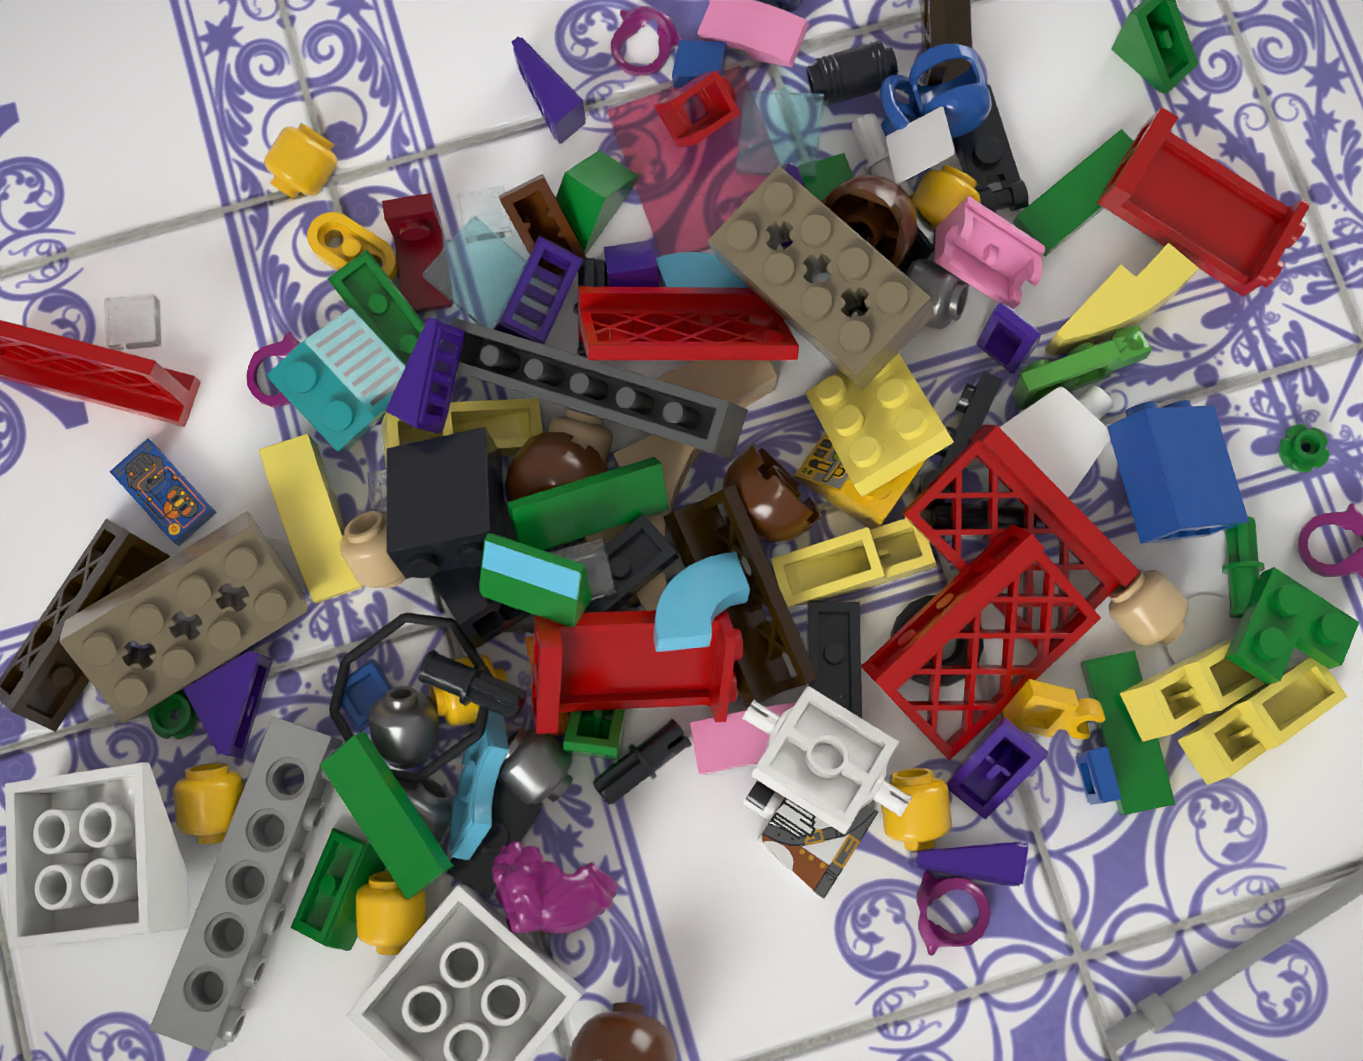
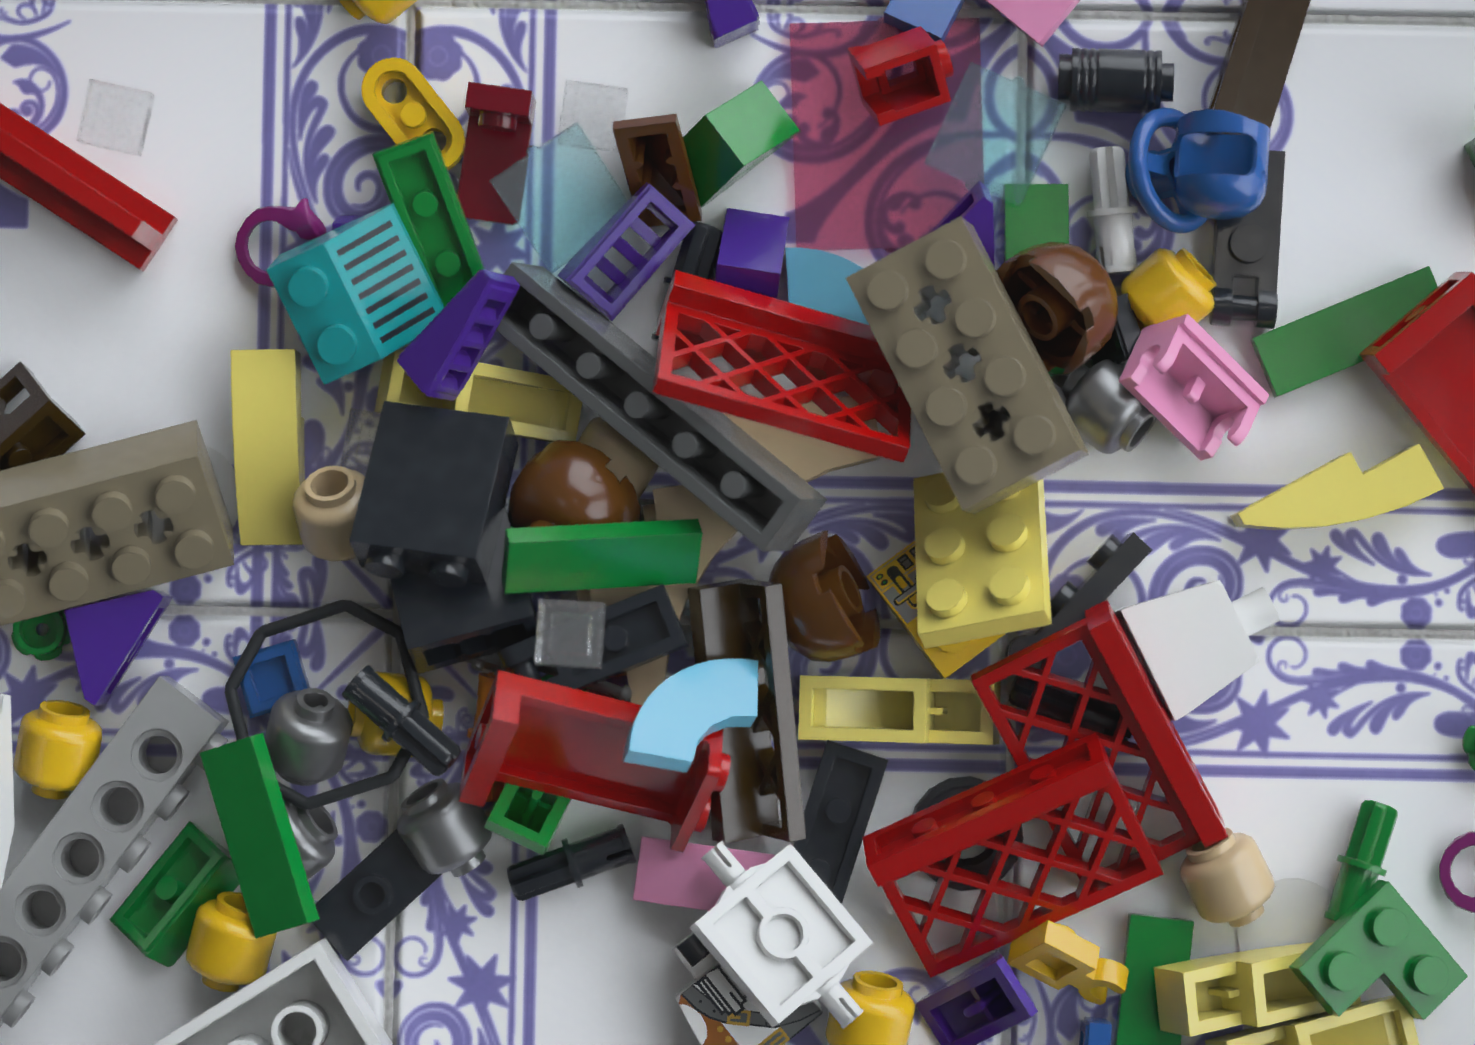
camera: 20 degrees right, 10 degrees up
(163, 492) = (97, 350): tile -> none
(476, 787) = (373, 828): medium azure tile -> none
(534, 580) = (508, 633): green slope -> none
(543, 896) = (411, 987): magenta hair -> none
(920, 145) = (1149, 232): white sticker -> none
(1008, 338) = (1184, 496): dark purple slope -> none
(1081, 366) = (1264, 557): bright green hinge -> none
(1176, 471) = (1319, 729): blue brick -> none

